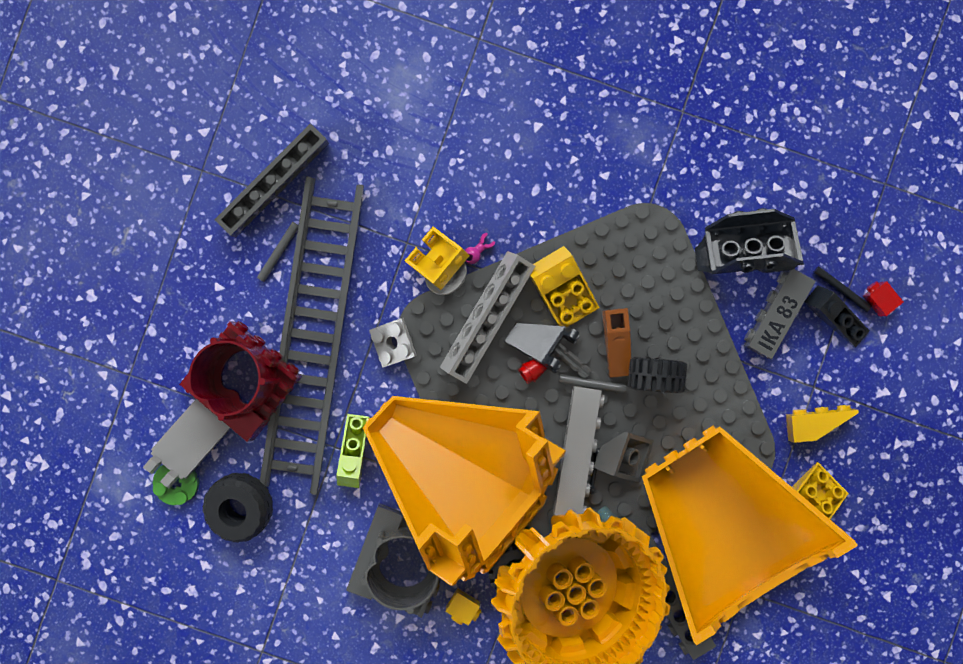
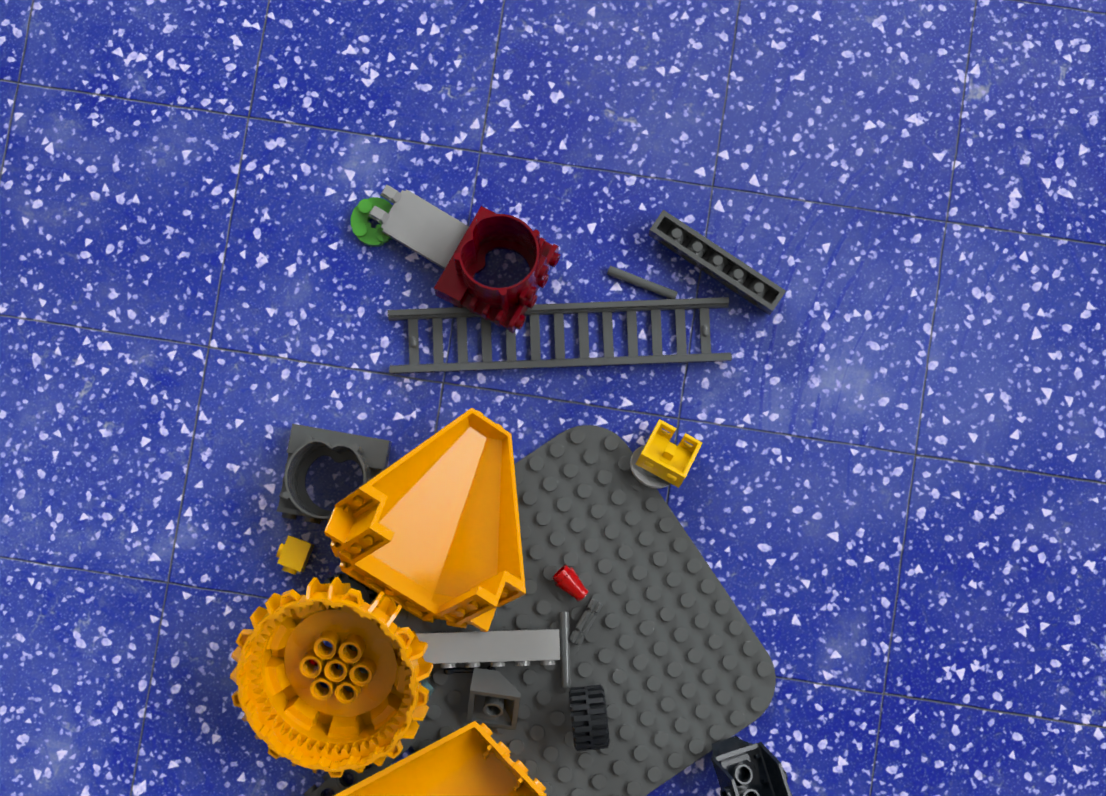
camera: 80 degrees right, 5 degrees down
(228, 523) = (350, 274): black tyre -> none
(352, 452) = (441, 402): lime slope -> none
(382, 340) = (568, 412): light grey piece -> none
(474, 252) = (683, 493): dark pink arm -> none
(487, 316) = (616, 519): light grey brick -> none
(540, 341) = (600, 583): flag -> none
(563, 287) = (663, 596): yellow slope -> none
(617, 341) = (616, 667): dark orange slope -> none

